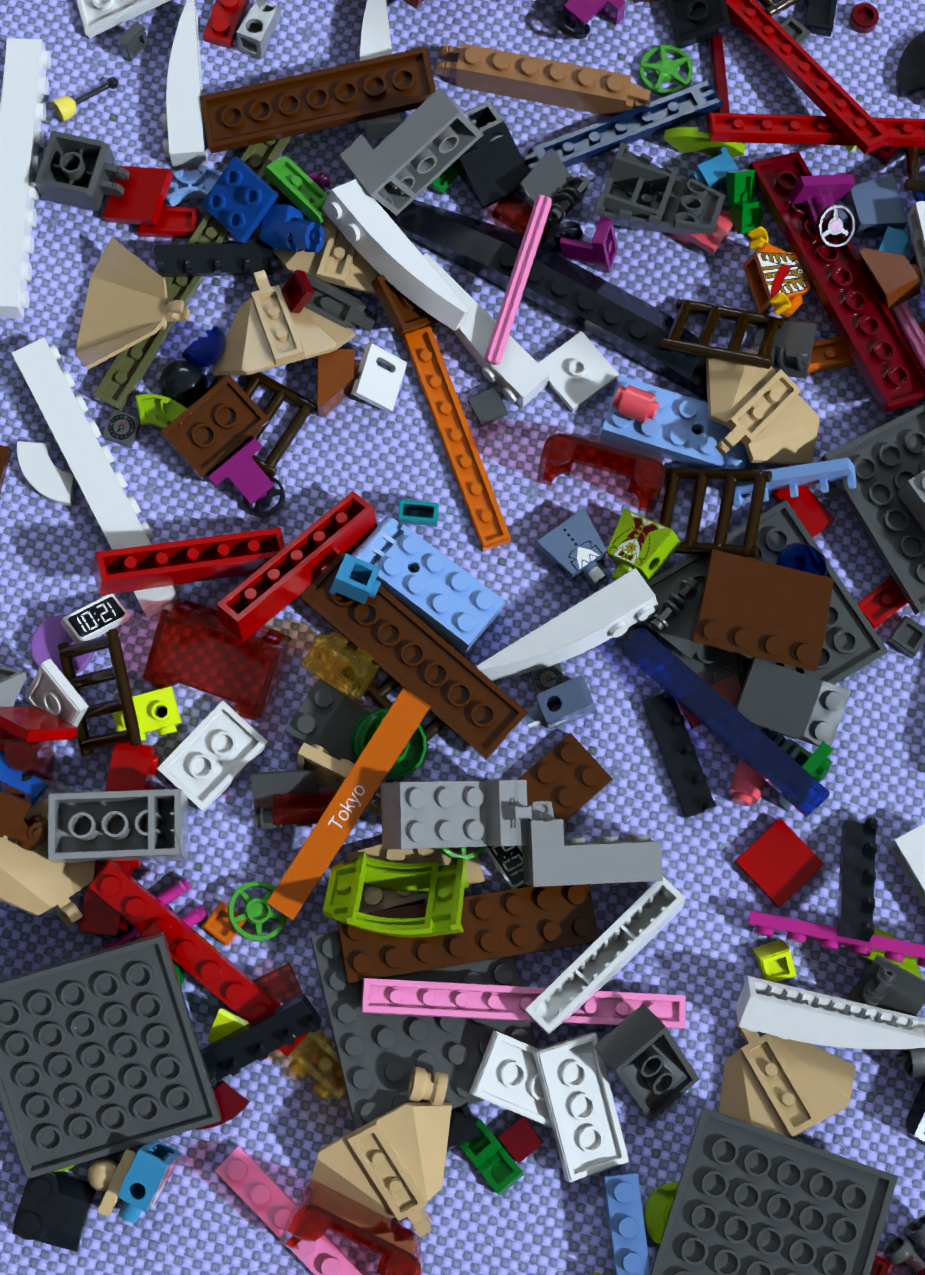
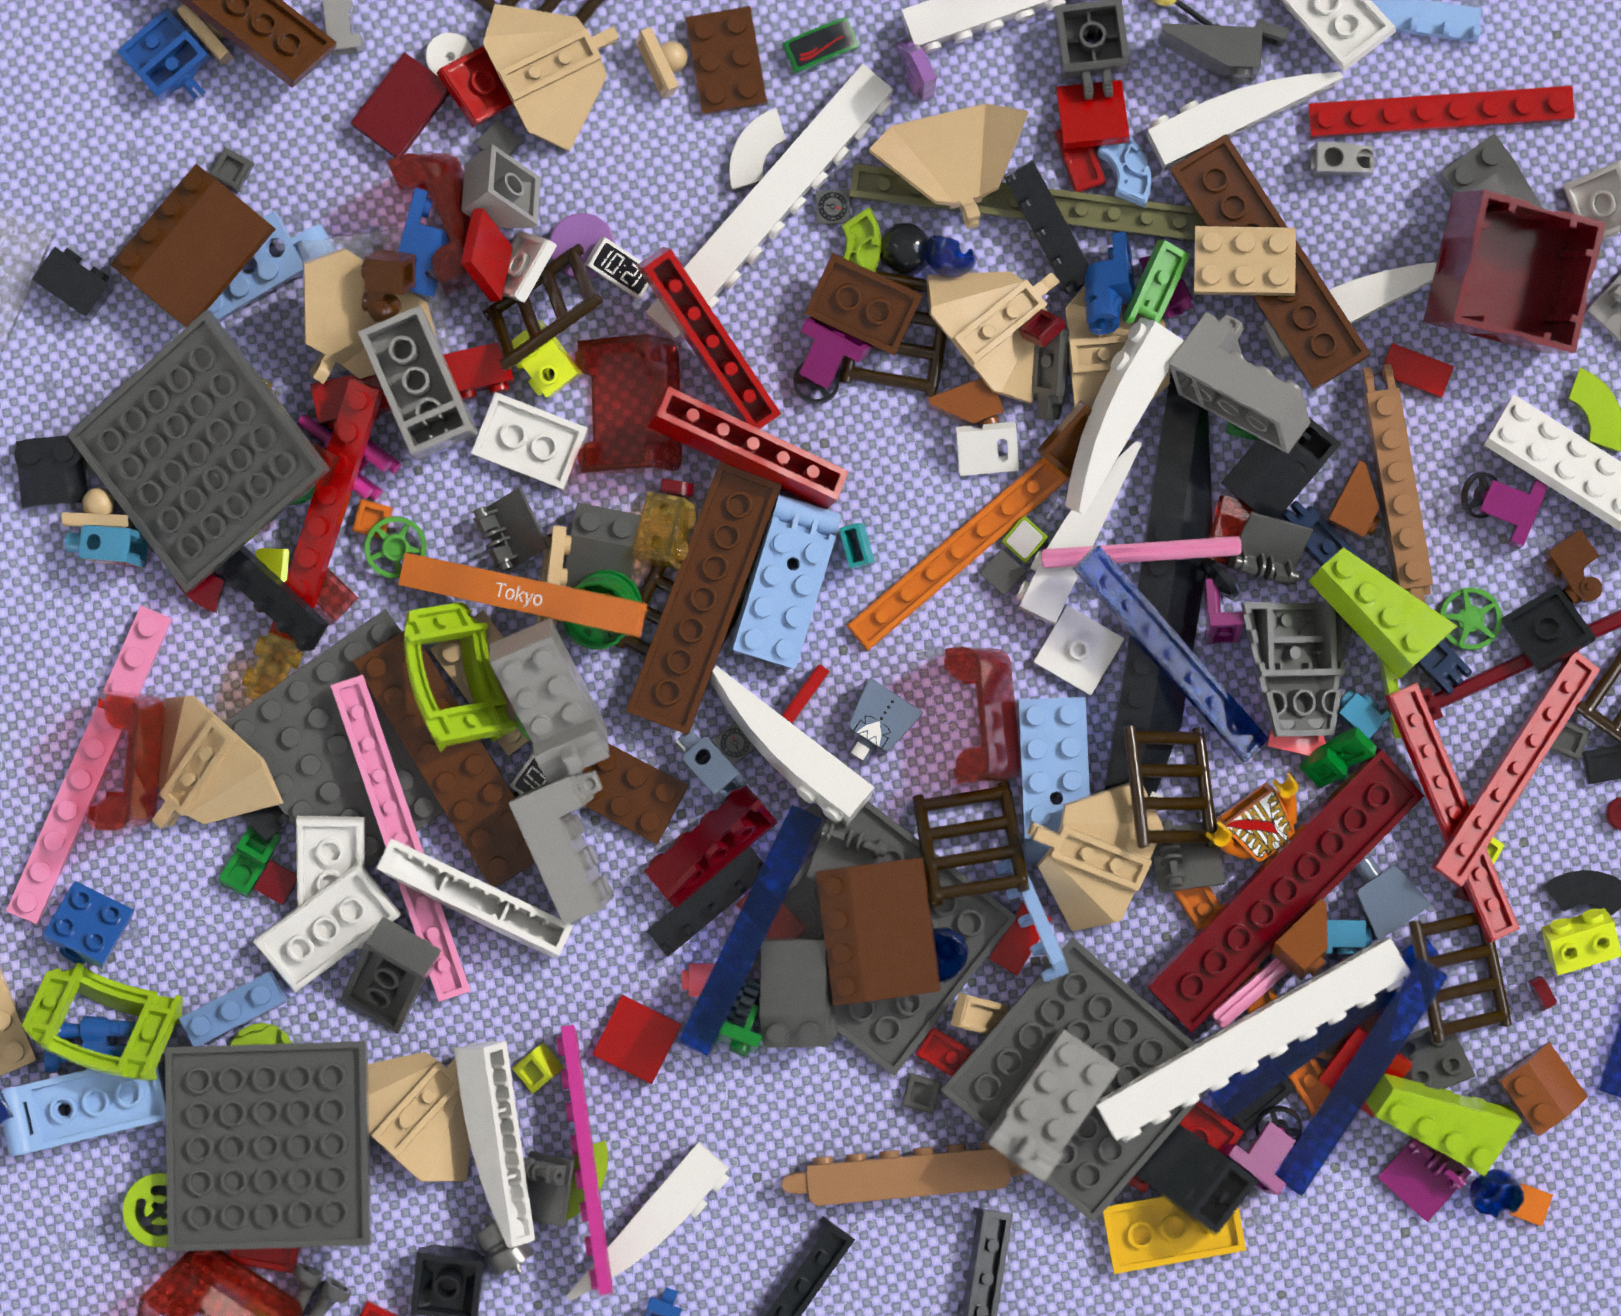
camera: 75 degrees right, 10 degrees up
(36, 307) = (920, 74): none -> medium lavender wing
(127, 79) = (1221, 50): none -> dark grey slope
(239, 199) = (1120, 226): blue plate -> none
(300, 807) = (507, 549): clear red tile -> none
(305, 644) = (676, 488): none -> dark red tile
(310, 114) = (1244, 261): none -> tan plate
(356, 579) = (762, 503): dark azure brick -> none
(427, 1086) = (286, 773): tan wheel -> none
(453, 32) = (1418, 370): none -> red tile
(467, 377) = (1025, 539): none -> white slope
(528, 600) = (805, 693): none -> red tile
(540, 114) = (1356, 505): none -> dark orange slope
(609, 290) = (1170, 653): none -> clear blue tile
(631, 731) = (710, 846): none -> dark red wedge
(635, 403) = (1052, 724): coral brick -> none
(640, 118) = (1381, 611): none -> lime wedge
(640, 545) = (905, 784): lime torso -> none
(819, 196) = (1358, 845): magenta piece -> none
(857, 880) = (644, 1118): black hinge -> none
(859, 562) = (977, 1013): none -> tan tile

